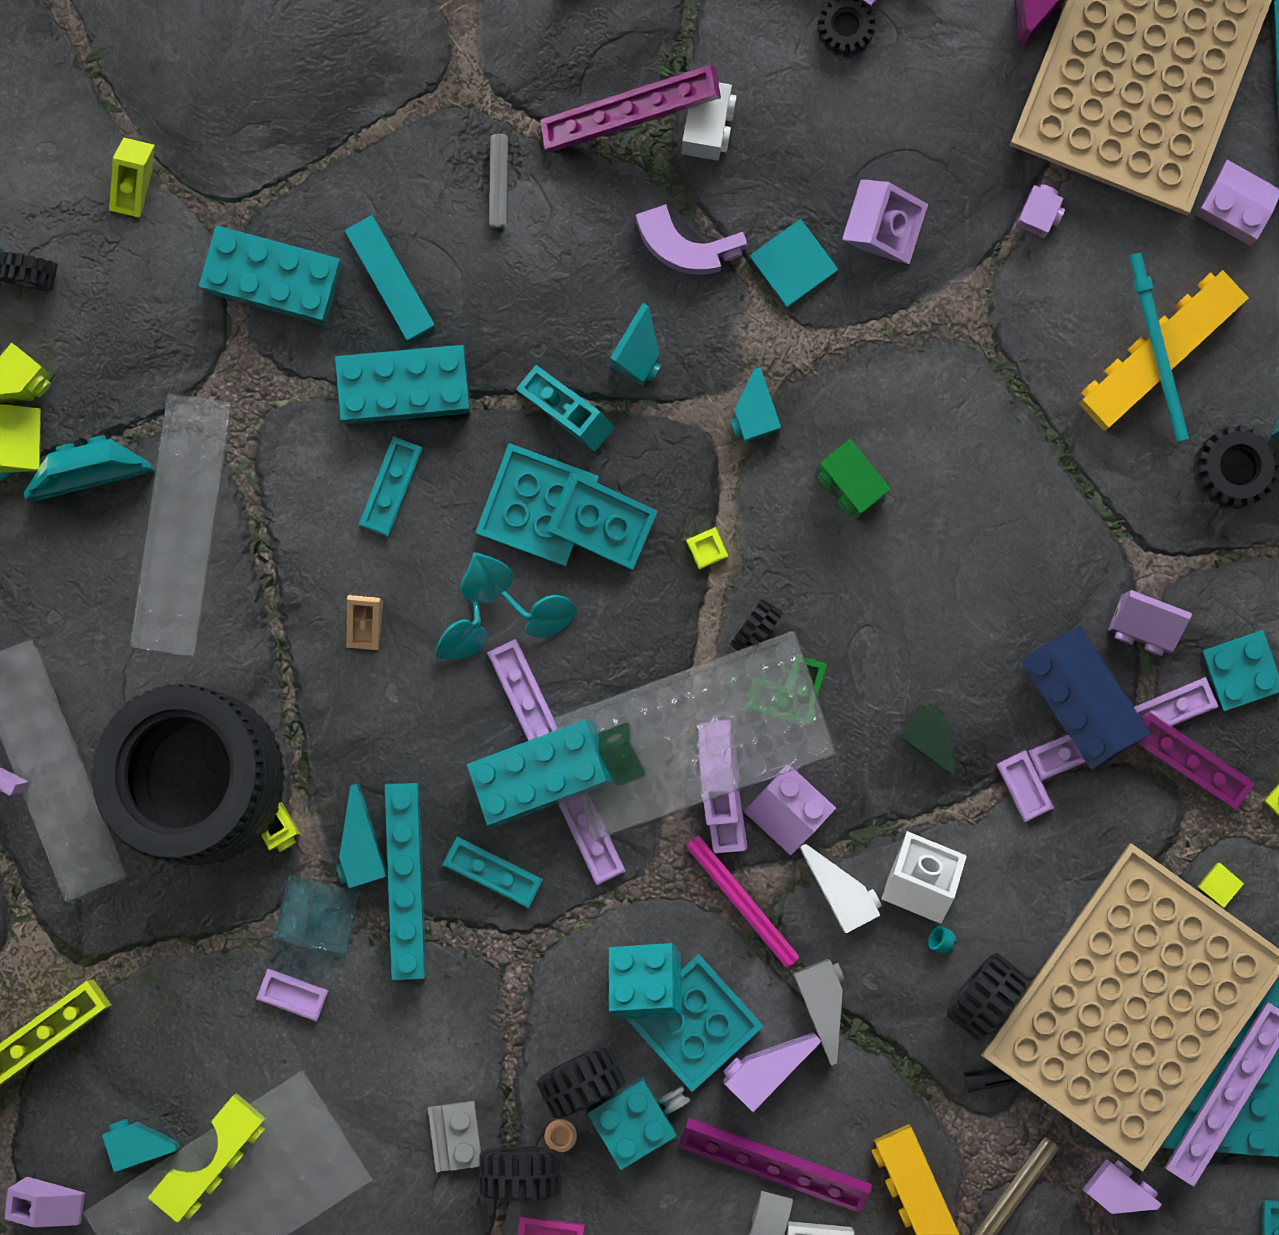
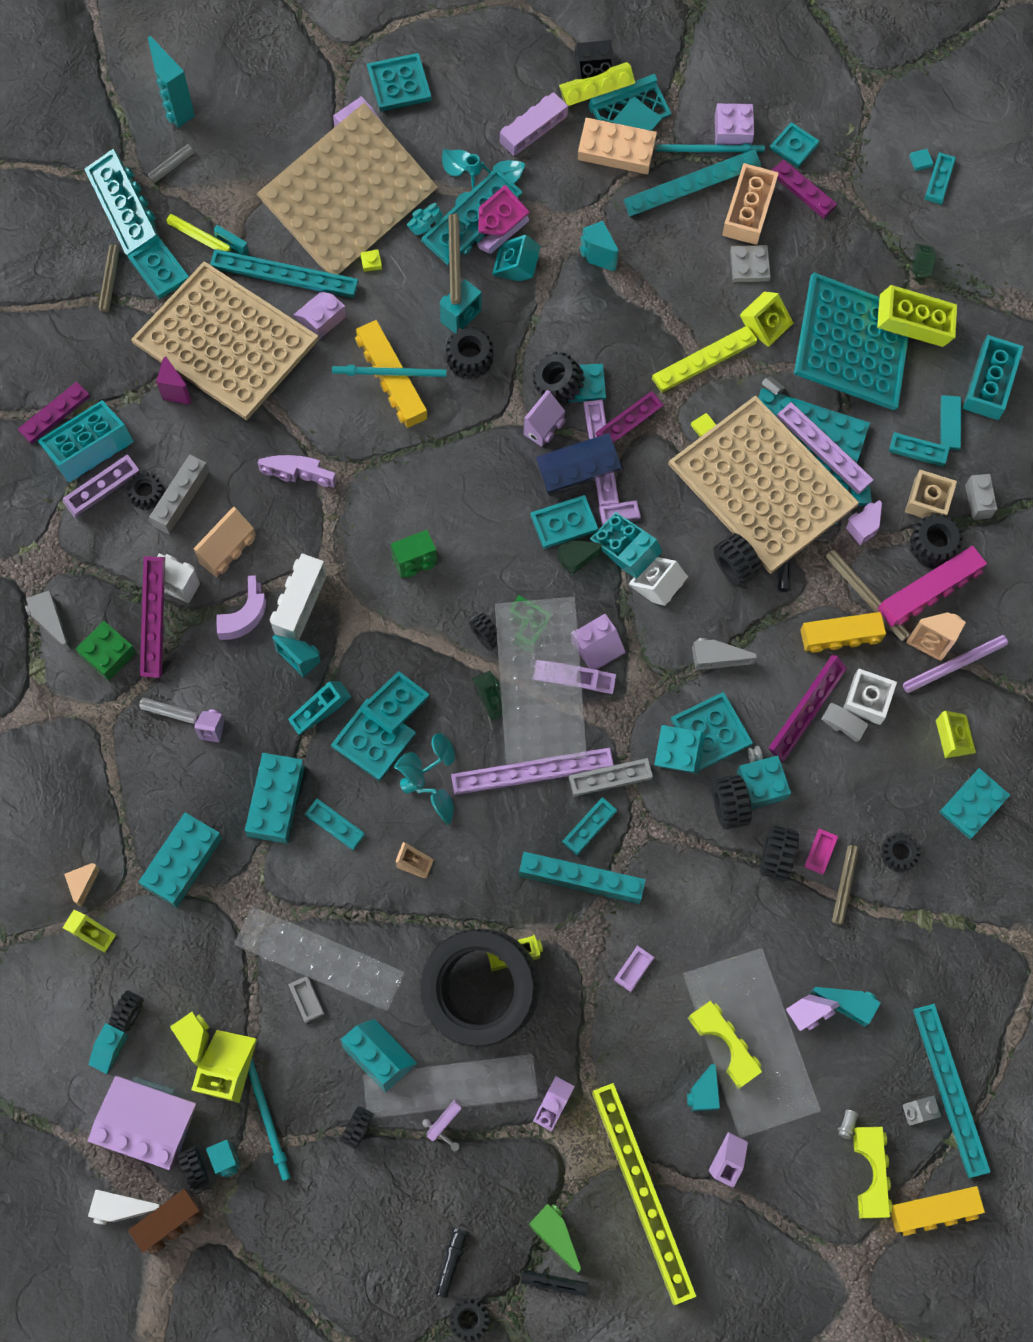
camera: 75 degrees left, 15 degrees down
(61, 927) = (553, 1103): none -> lavender slope
(63, 653) = (377, 1054): none -> teal slope
(85, 467) = (264, 1008): teal wedge -> none
(118, 524) = (306, 999): none -> light grey tile
(197, 140) = (81, 881): none -> light nougat slope
(317, 914) = (587, 938): clear light blue slope -> none
(359, 849) = (551, 900): teal slope -> none
(389, 278) = (206, 790): teal tile -> none
(455, 1136) = (746, 892): light grey plate -> none
(489, 251) = (210, 725): none -> lavender slope
(539, 773) = (537, 776): teal brick -> none
(560, 1135) = (760, 828): light nougat plate -> none
(563, 55) = (106, 651): none -> green brick
(577, 884) = (610, 777): none -> light grey plate
(620, 755) = (540, 725): clear green bracket -> none
(659, 660) = (489, 694): none -> clear green slope
(707, 548) = (429, 650): neon yellow tile -> none
(727, 322) = (299, 597): none -> white brick
(742, 901) = (645, 686): dark pink axle -> none
(755, 411) = (354, 599): teal slope -> none
(765, 1070) = (752, 697): lavender slope -> none
(788, 179) = (224, 542): none -> light nougat slope
(793, 263) = (274, 557): teal tile -> none
(845, 895) = (657, 626): white slope -> none
(853, 80) = (179, 494): none -> light grey brick
(885, 221) = (267, 499): lavender slope -> none
(942, 940) = (694, 578): teal hinge -> none
(951, 240) = (290, 467): none -> lavender slope
(969, 810) = (627, 544): none -> teal slope
(982, 701) = (564, 522): none -> teal plate
(1041, 211) = (290, 415): lavender brick -> none
(1163, 1178) = (863, 498): none -> teal tile
(1229, 602) = (550, 368): none -> black tyre

